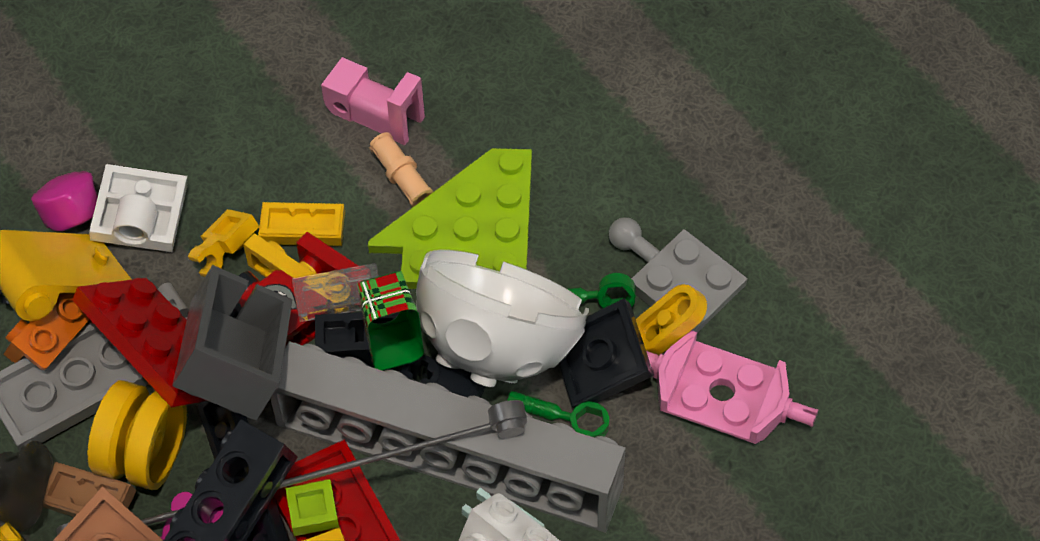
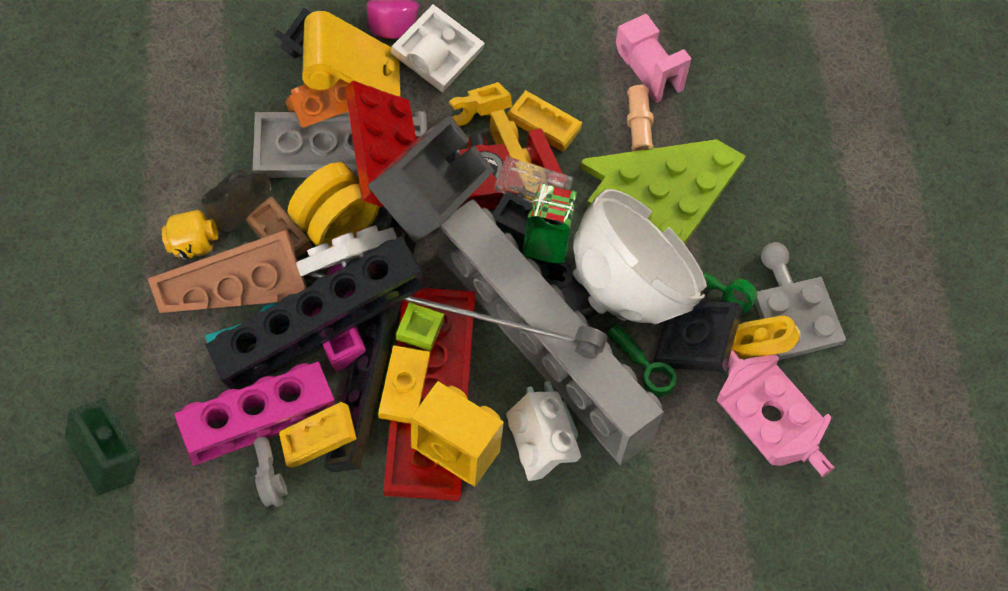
camera: 25 degrees right, 5 degrees up
(182, 471) = (344, 249): none -> white plate

